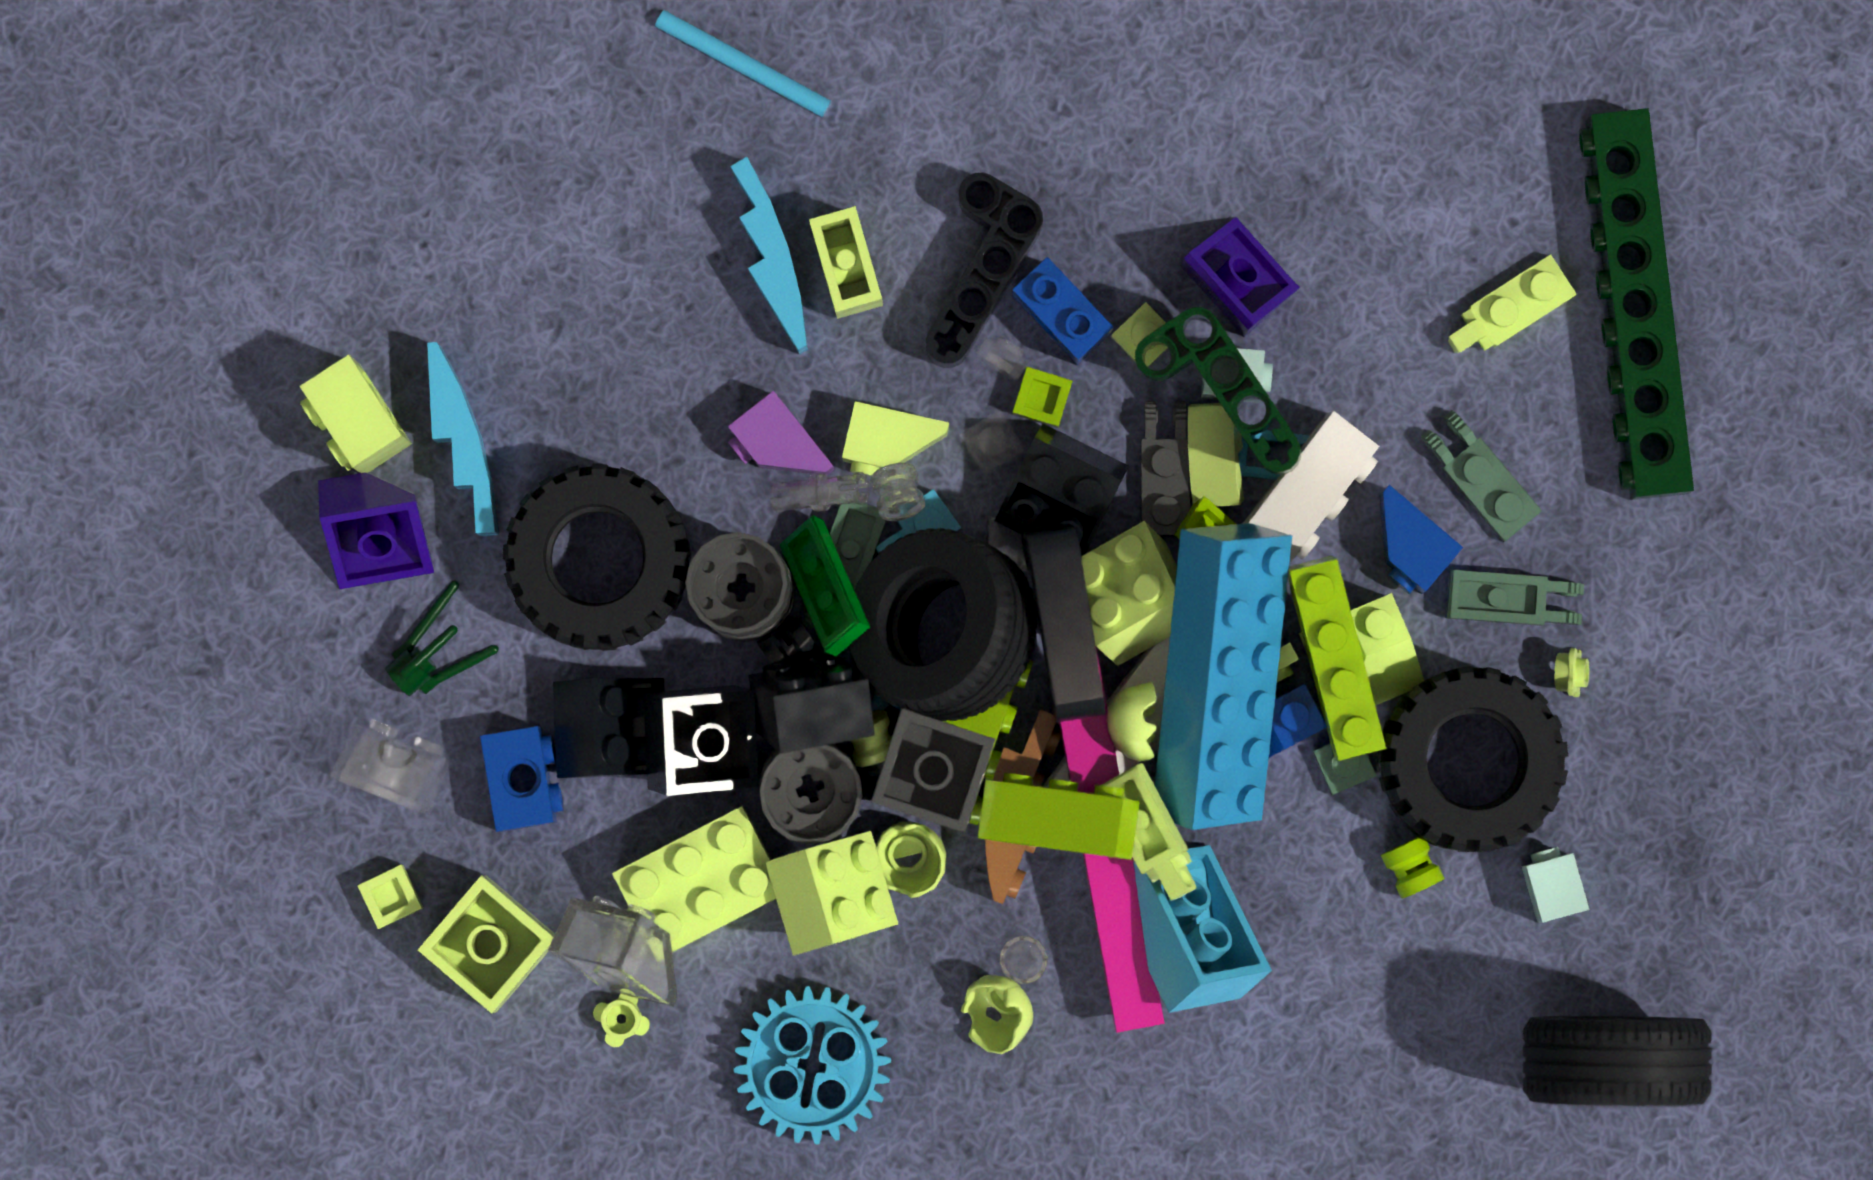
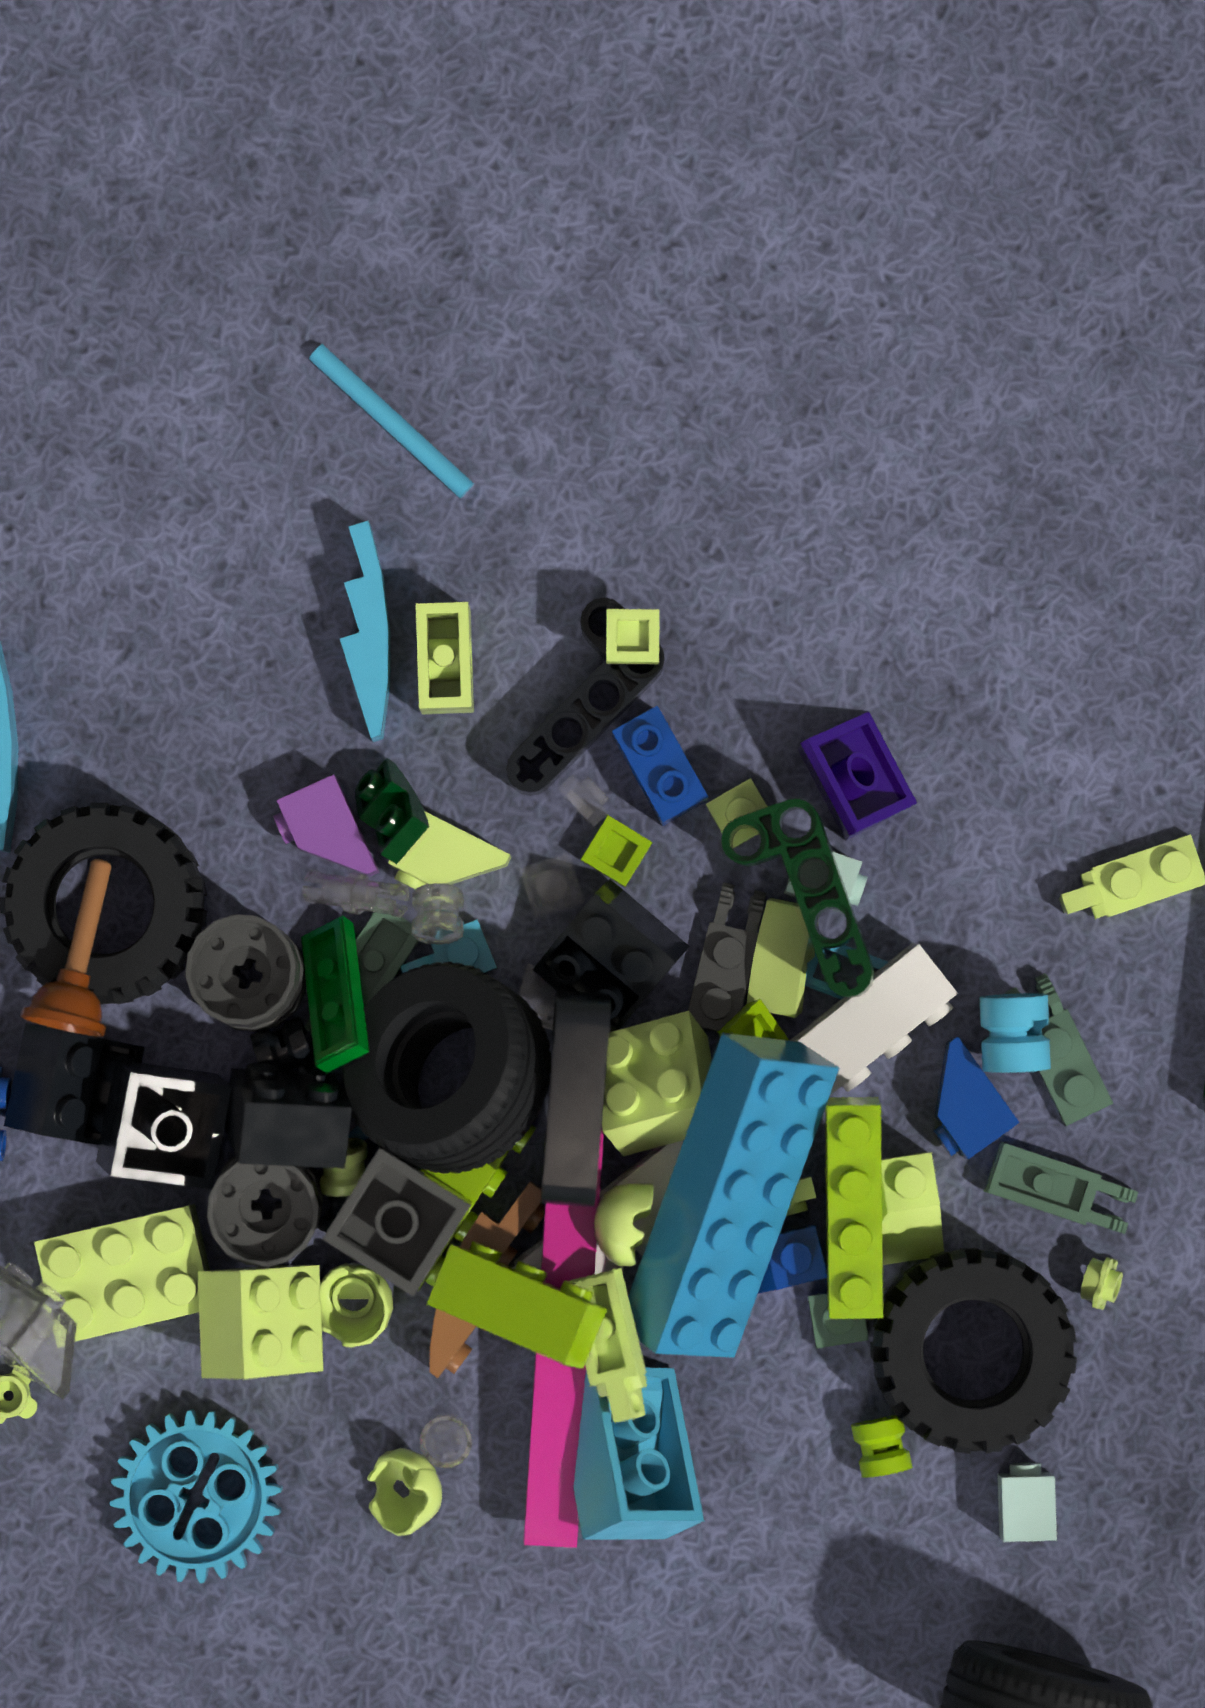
camera: 15 degrees right, 0 degrees up
(590, 650) = (68, 1002): none -> piece
(832, 408) = (391, 808): none -> dark green slope
(1010, 200) = (632, 636): none -> yellowish green plate
(1439, 468) = (1015, 1032): none -> medium azure wheel

